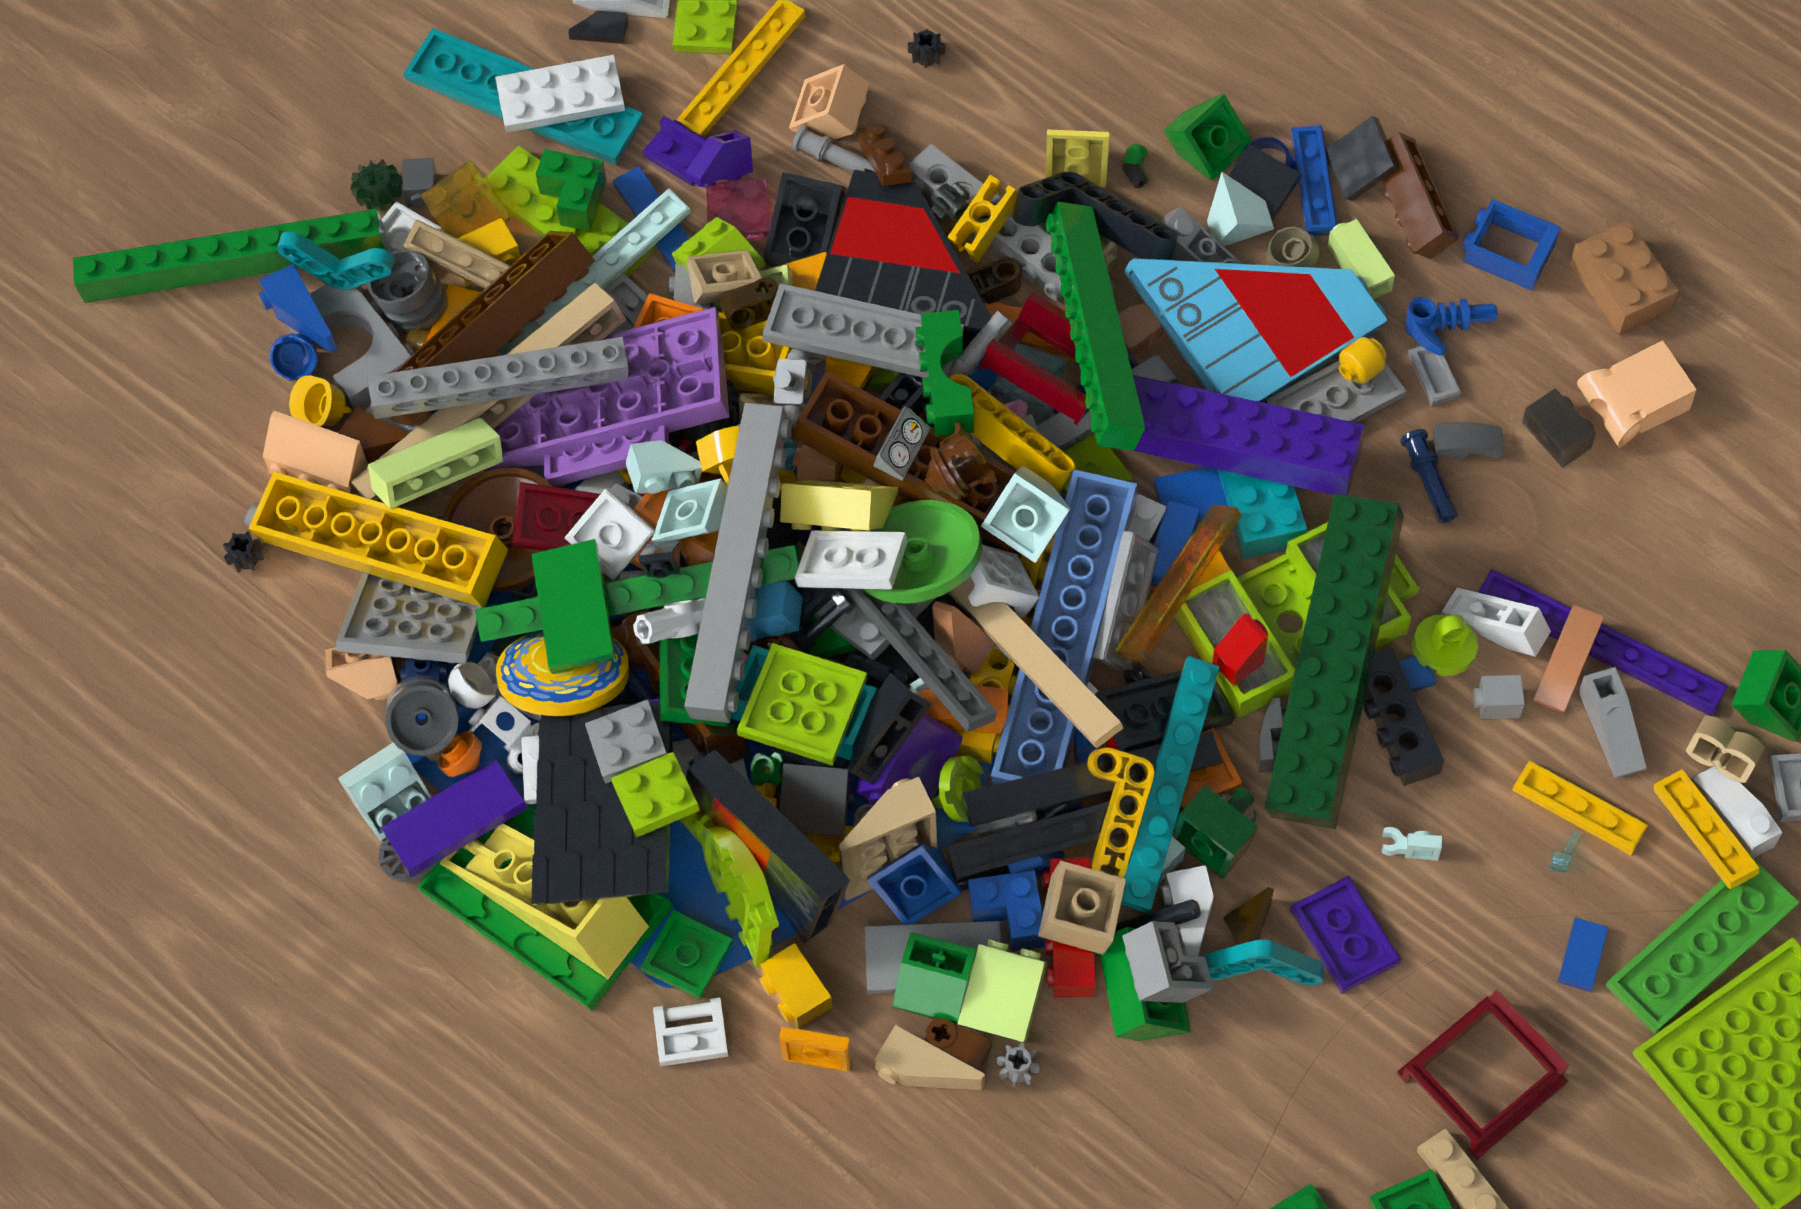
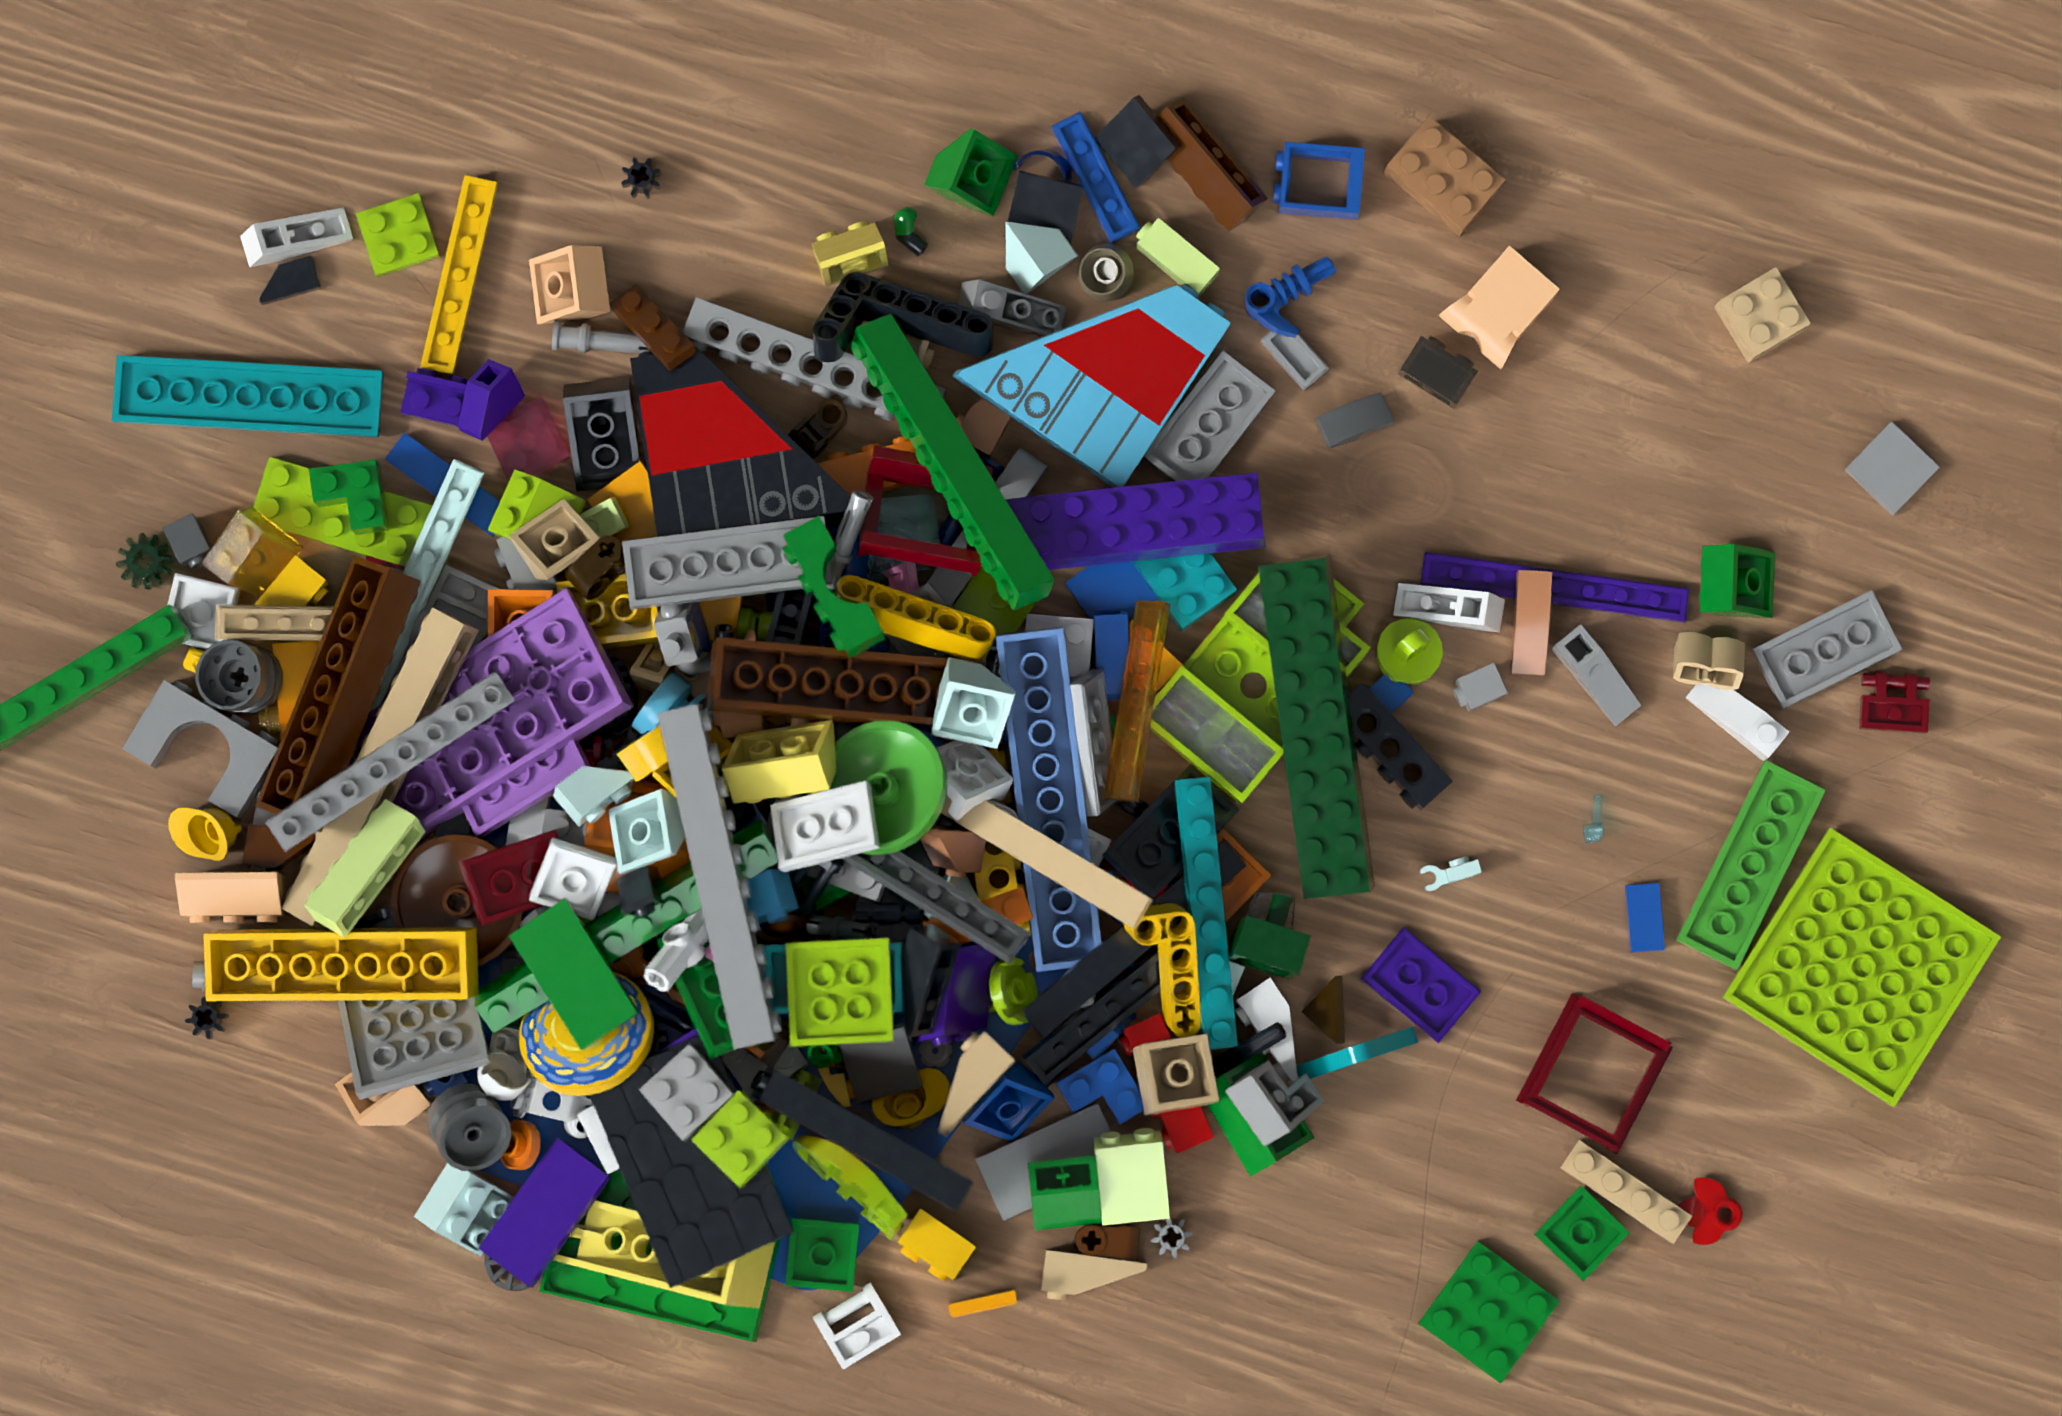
camera: 25 degrees left, 20 degrees up
(293, 356) = (156, 790): blue hair -> none
(294, 306) = (131, 741): blue slope -> none
(336, 273) = (161, 691): teal beam -> none
(559, 93) = (287, 384): white plate -> none
(902, 444) = (823, 685): slope -> none
(950, 201) = (746, 364): pearl dark grey gear -> none
(957, 465) = (888, 687): reddish brown helmet -> none
(988, 230) = (775, 379): yellow piece -> none
(1241, 649) = (1227, 757): red slope -> none
(1270, 735) = (1277, 804): dark grey slope -> none
(1362, 360) = (1223, 381): yellow head -> none
(1425, 463) = (1321, 461): dark blue pin -> none
(1580, 807) = (1592, 769): yellow tile -> none
(1706, 829) = (1717, 751): yellow plate -> none

